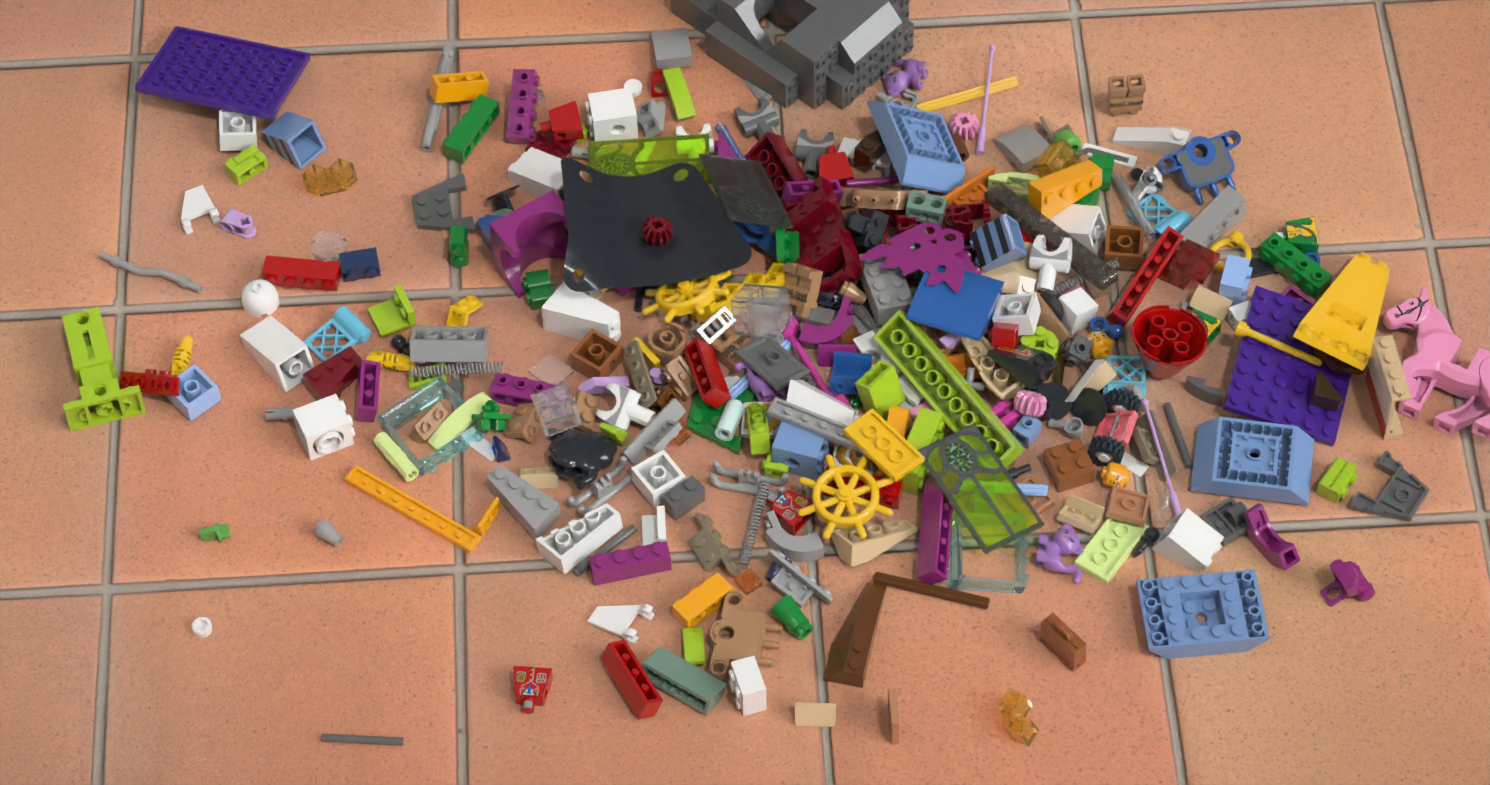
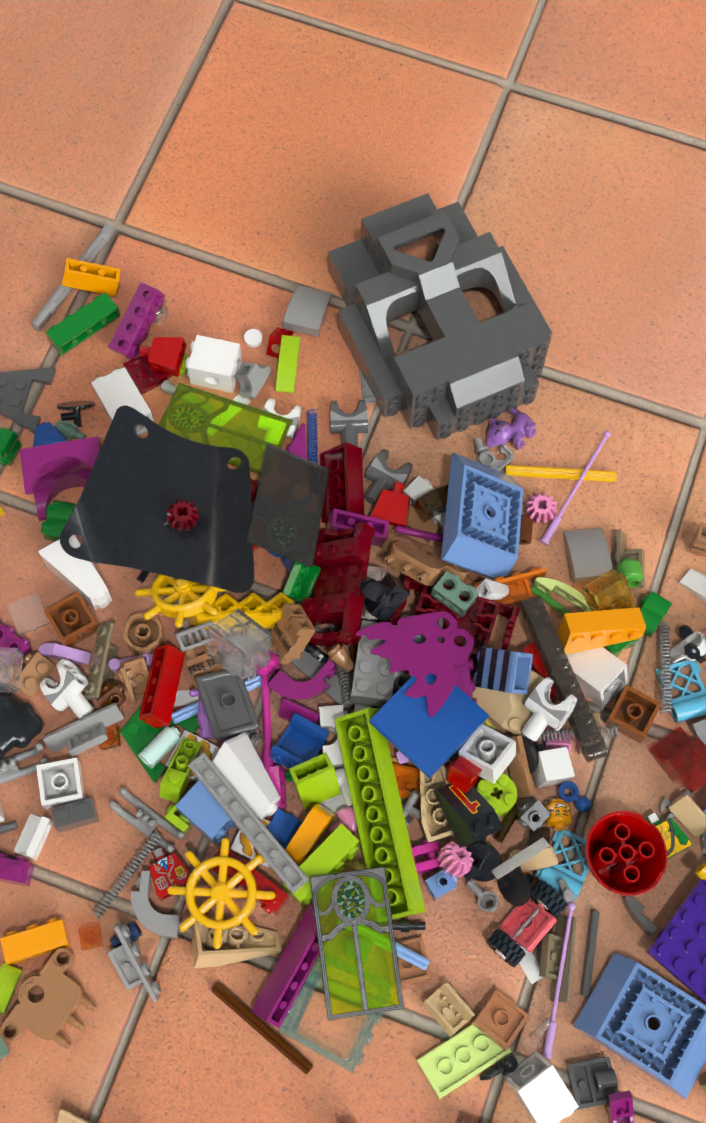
camera: 20 degrees right, 15 degrees up
(615, 433) = (44, 714): lime slope -> none
(649, 357) = (118, 629): yellow tile -> none
(710, 547) = (75, 882): dark tan bracket -> none
(748, 686) = (24, 1067): white brick -> none
(792, 617) = (110, 1002): green plant -> none
(848, 336) = (319, 701): clear orange slope -> none
(855, 640) = (161, 1051): reddish brown wedge -> none
(883, 445) = (279, 858): yellow tile -> none
(956, 196) = (492, 590): none -> white brick
(1065, 543) = (417, 1035): medium lavender animal -> none
(1069, 465) = (463, 944): dark orange brick -> none
(1115, 475) = (503, 977): light orange head -> none
(1120, 158) = (678, 603): white sticker -> none
(1144, 277) = (637, 760): red brick -> none

